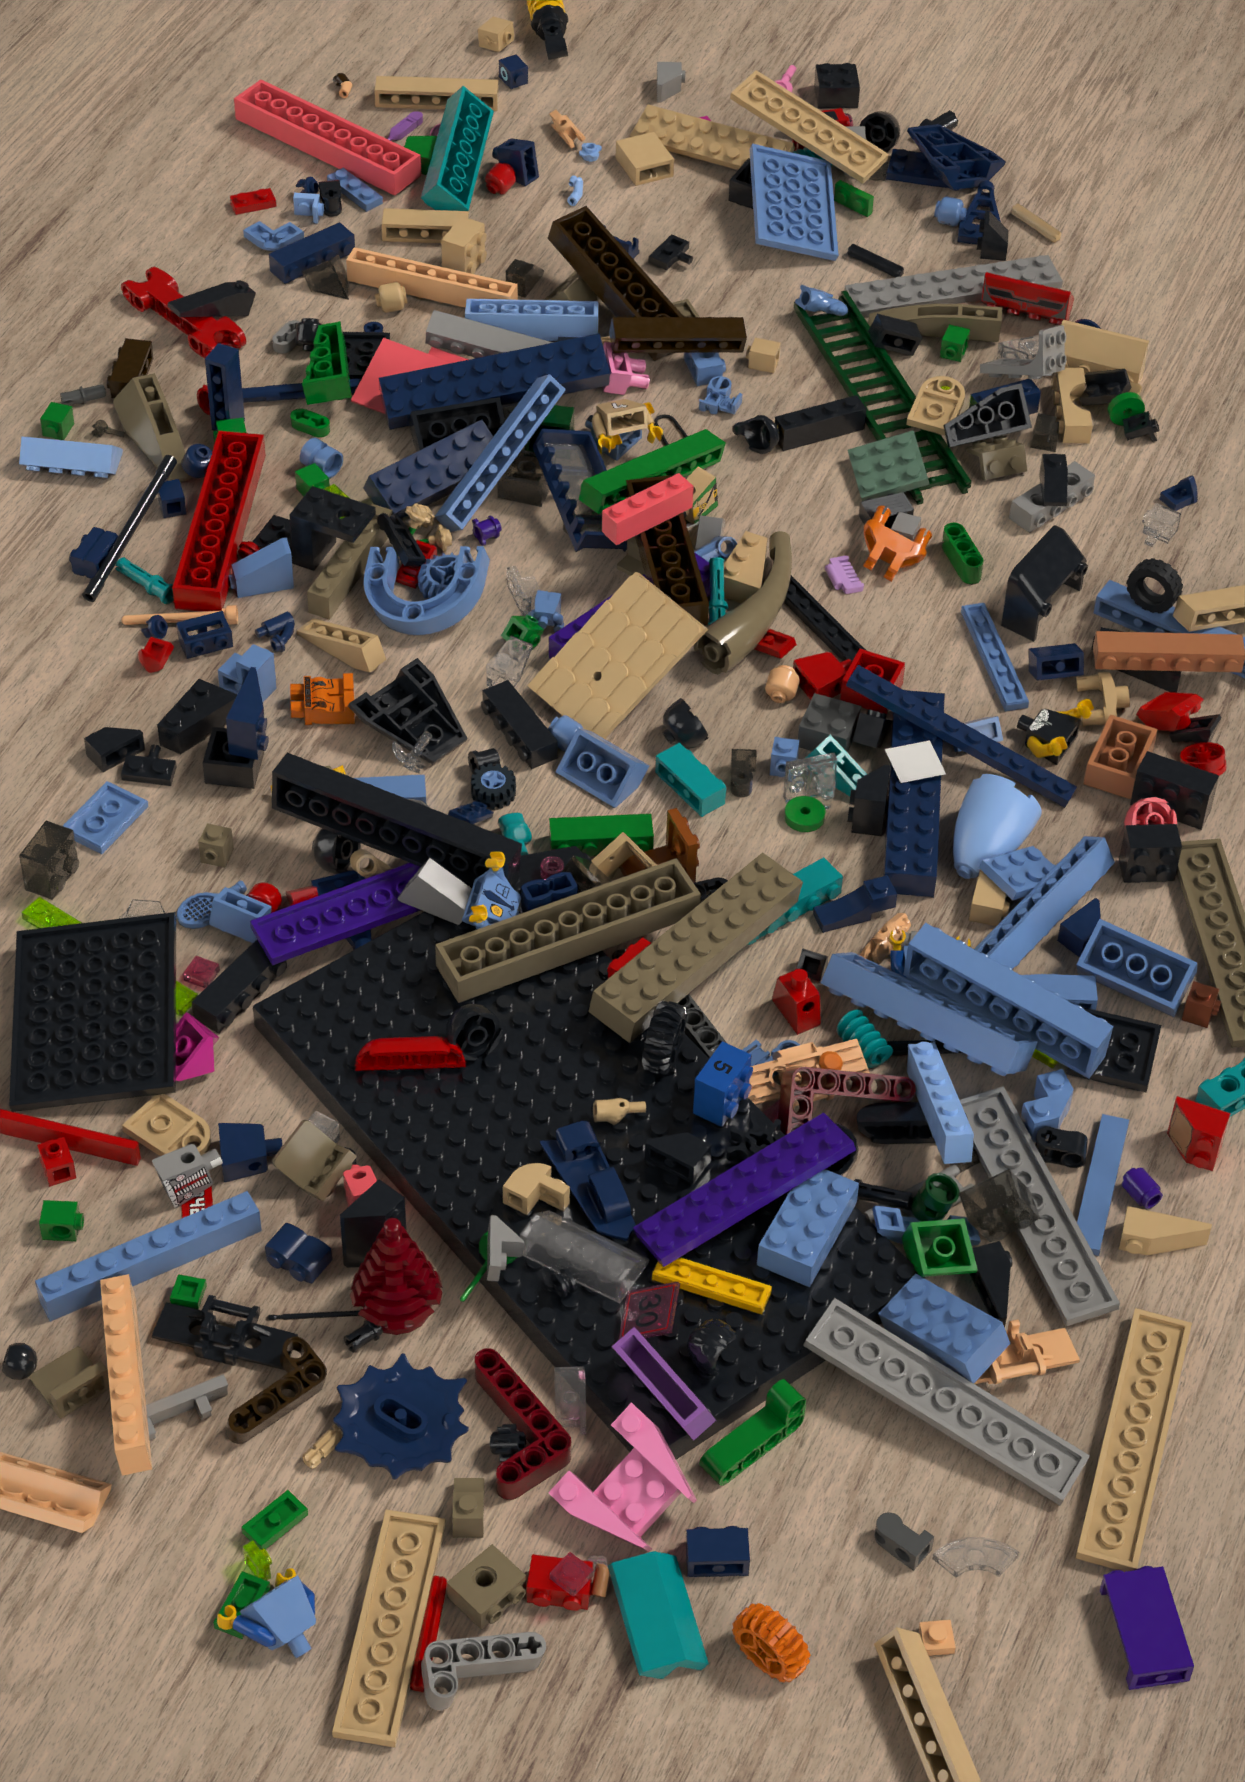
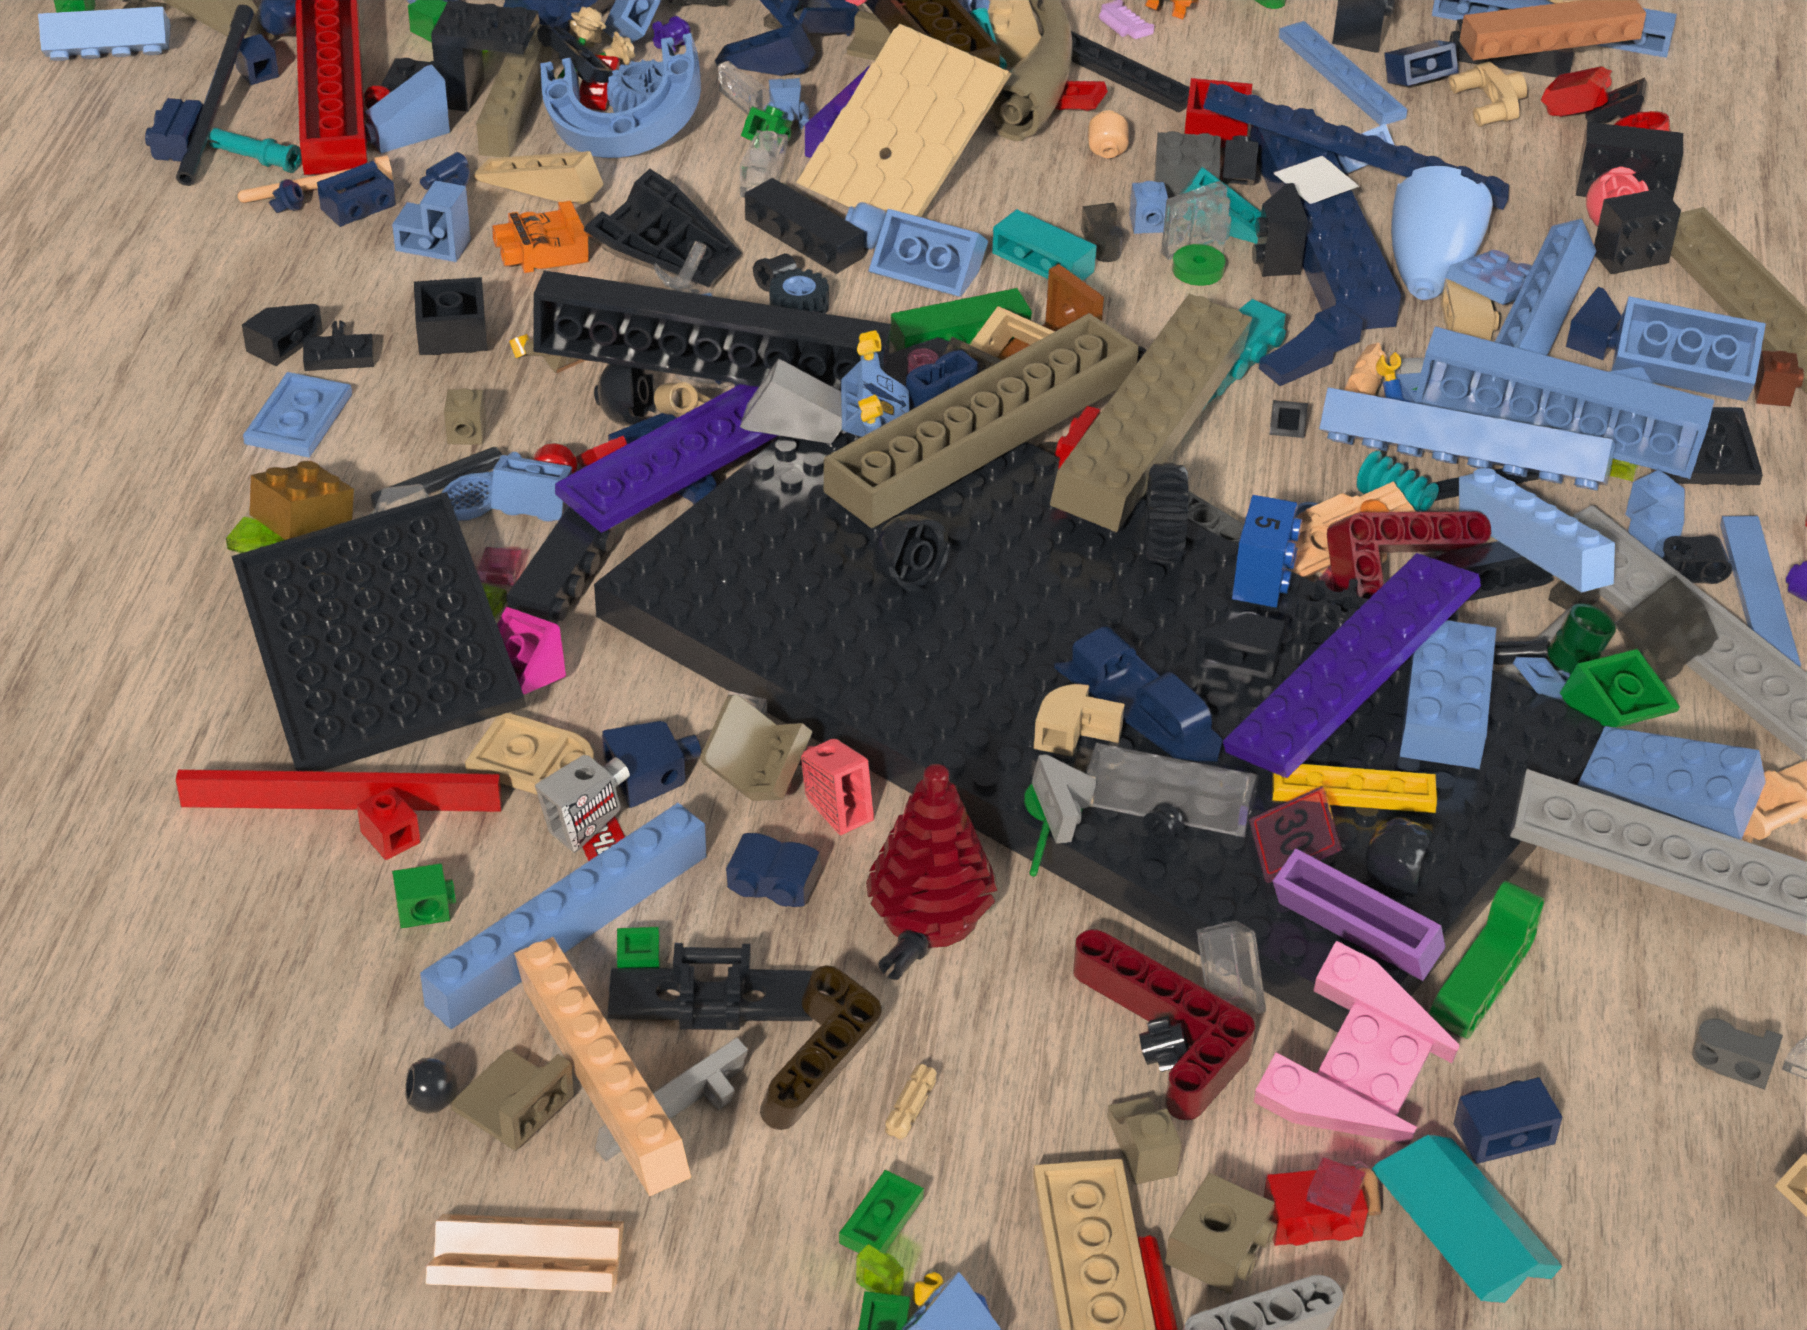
camera: 15 degrees left, 5 degrees down
(49, 860) = (244, 449): clear smoke brick -> none
(77, 895) = (299, 499): none -> pearl gold brick
(155, 654) = (298, 224): red plate -> none
(186, 890) = (442, 476): none -> black axle
(195, 716) = (384, 278): black wedge -> none
(246, 720) = (467, 258): dark blue slope -> none
(314, 1315) = (825, 944): black piece -> none
(366, 1218) = (871, 804): black slope -> none
(409, 1054) = (834, 596): red brick -> none
(423, 1414) = (1005, 1043): dark blue piece -> none
(557, 560) = (771, 52): none -> dark blue slope
(615, 1109) = (1135, 609): tan piece -> none
(683, 726) = (1009, 189): black cylinder -> none
(771, 1642) = (1643, 1214): orange gear -> none
(798, 1000) = (1294, 456): red torso -> none
(821, 674) = (1152, 114): red torso -> none
(993, 1278) = (1696, 717): black slope -> none
(1054, 731) = (1454, 132): torso -> none
(1119, 755) = (1547, 143): nougat brick -> none

